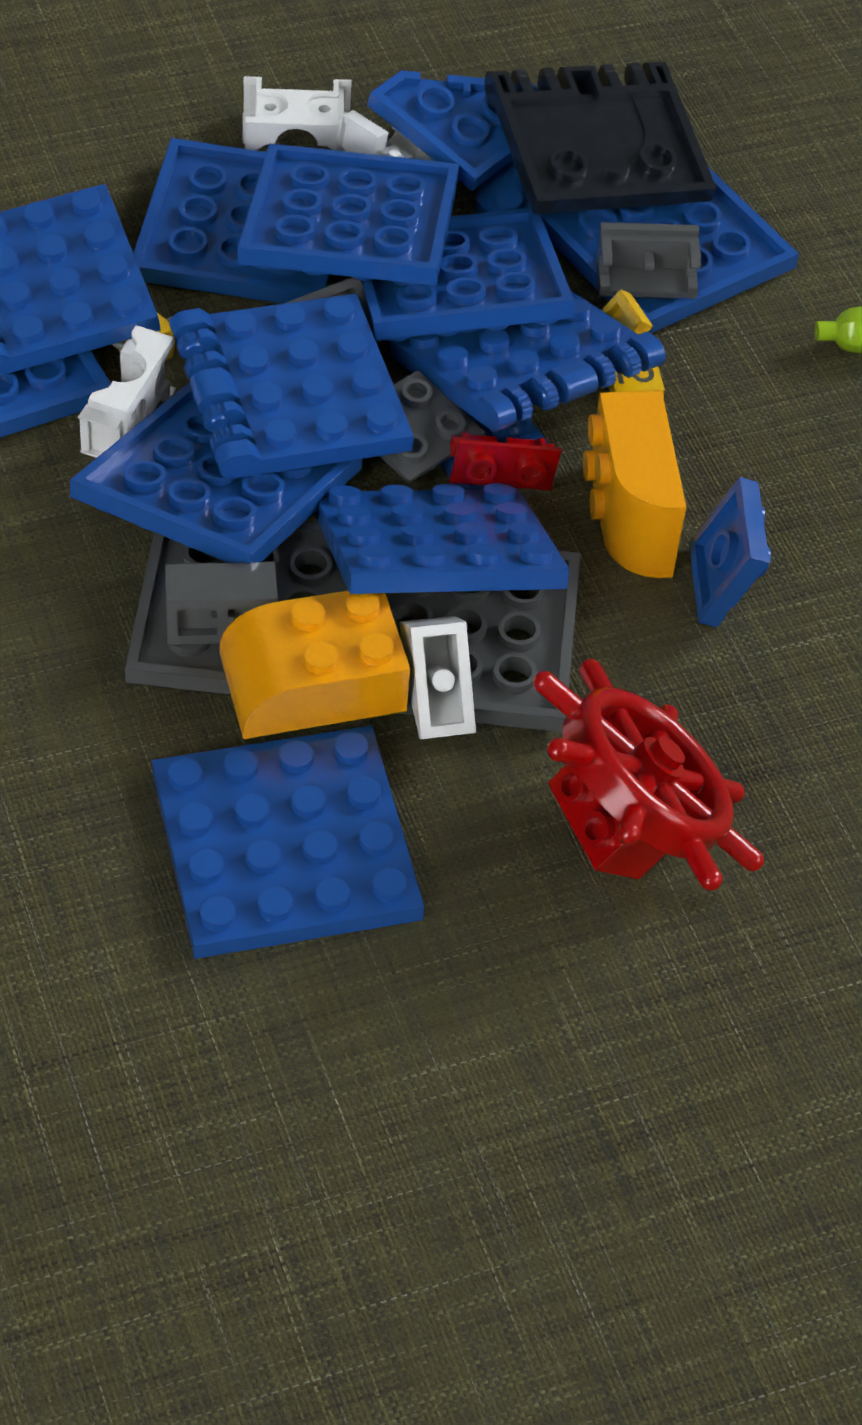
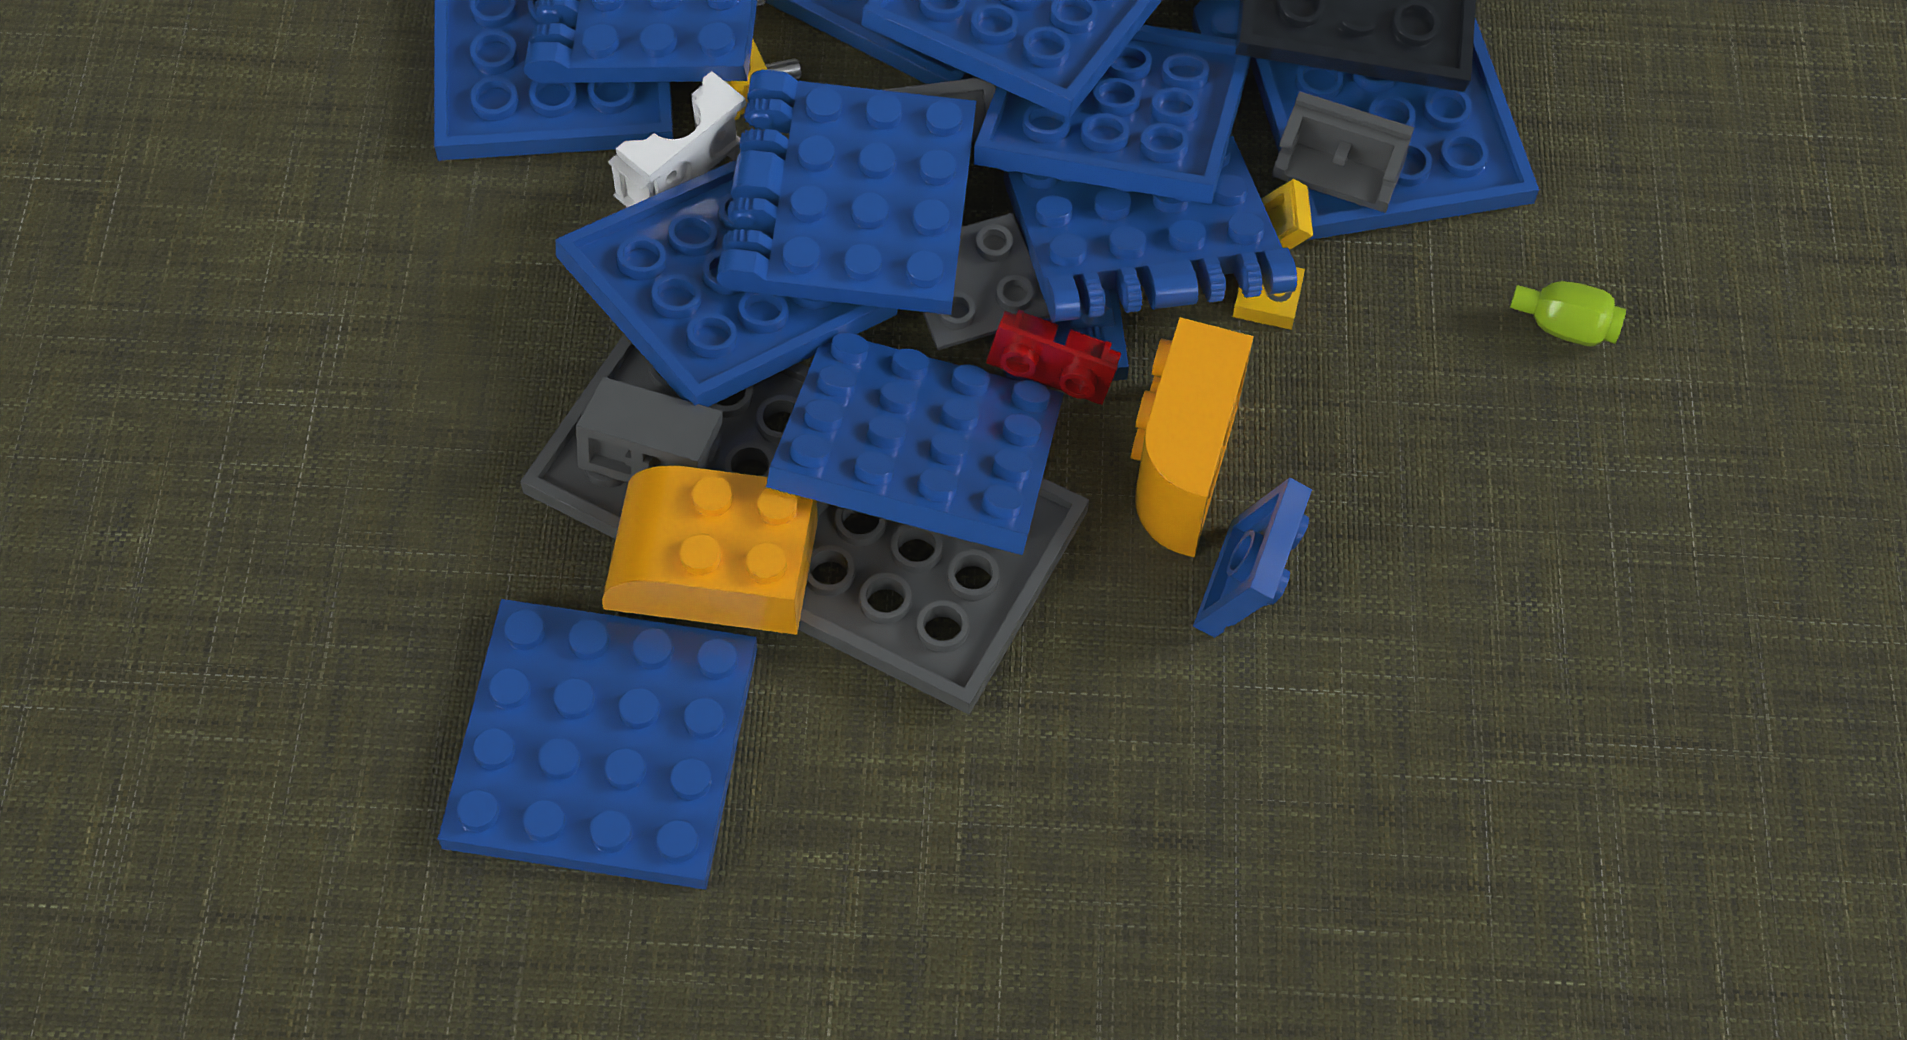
camera: 25 degrees right, 10 degrees up
(439, 676) = (839, 608): white slope -> none
(639, 783) = (977, 826): red piece -> none

